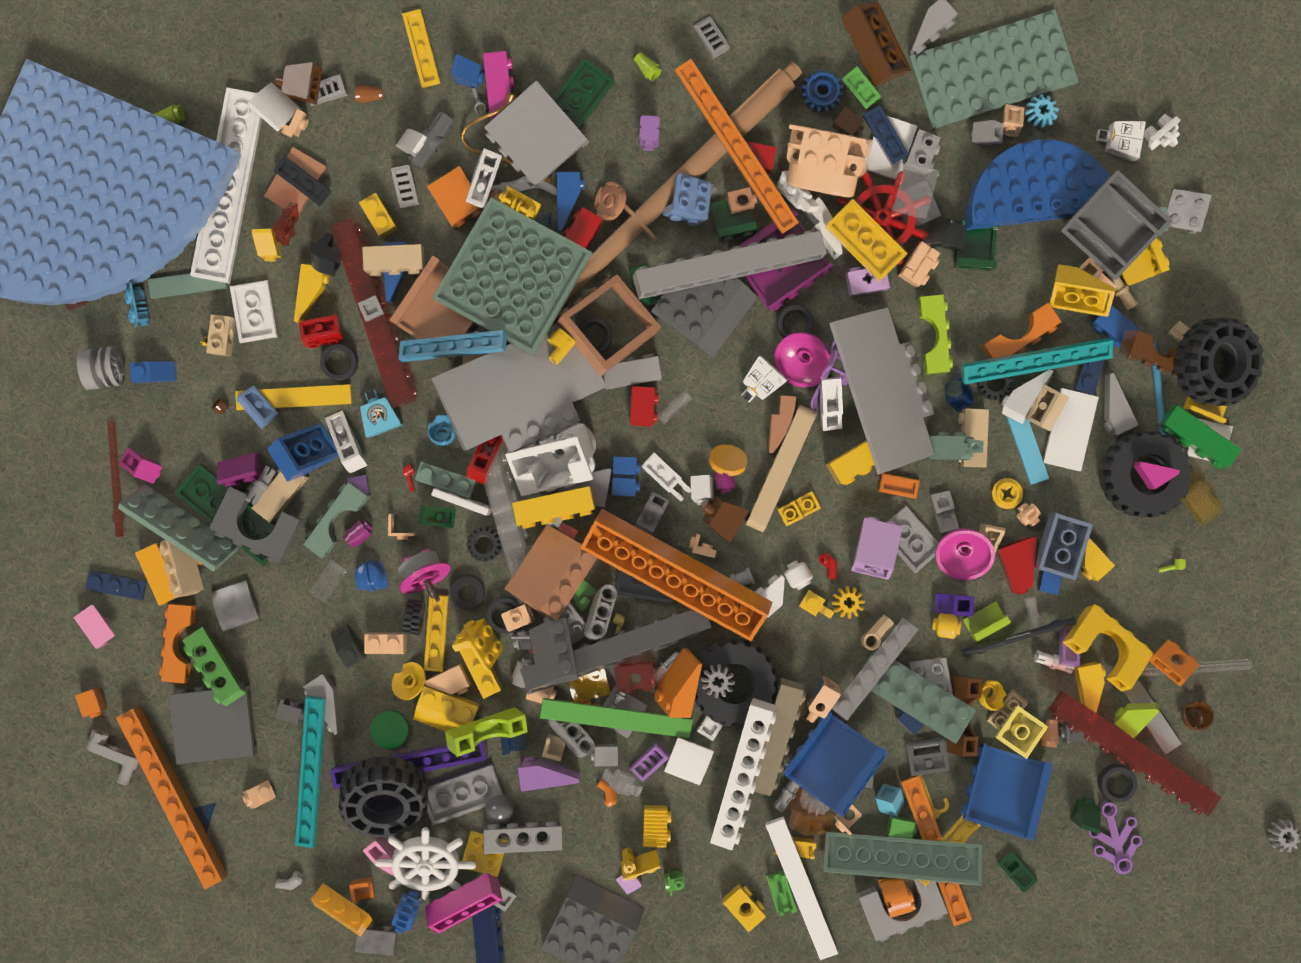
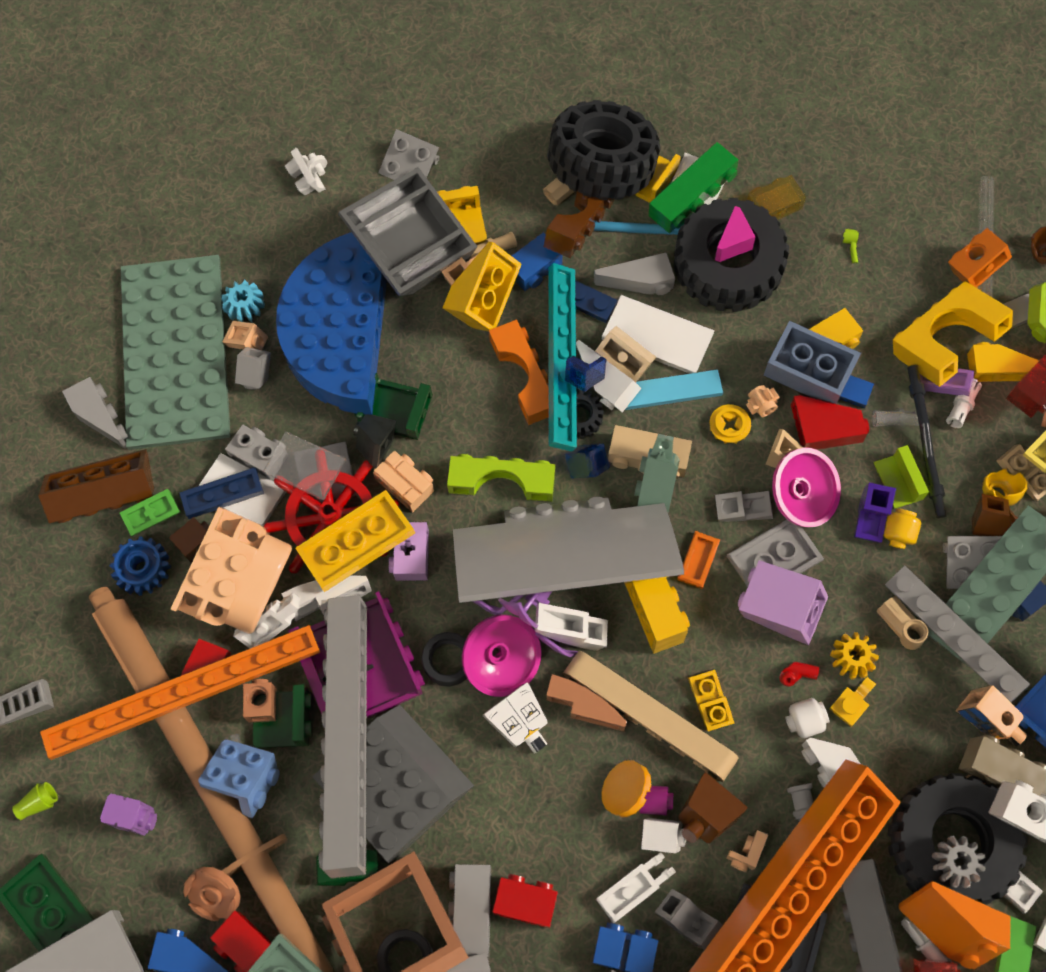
camera: 75 degrees left, 20 degrees down
(674, 407) = (534, 854): clear pin -> none
(1022, 380) = (583, 374): none -> clear blue panel
(1123, 139) = (303, 215): white torso -> none

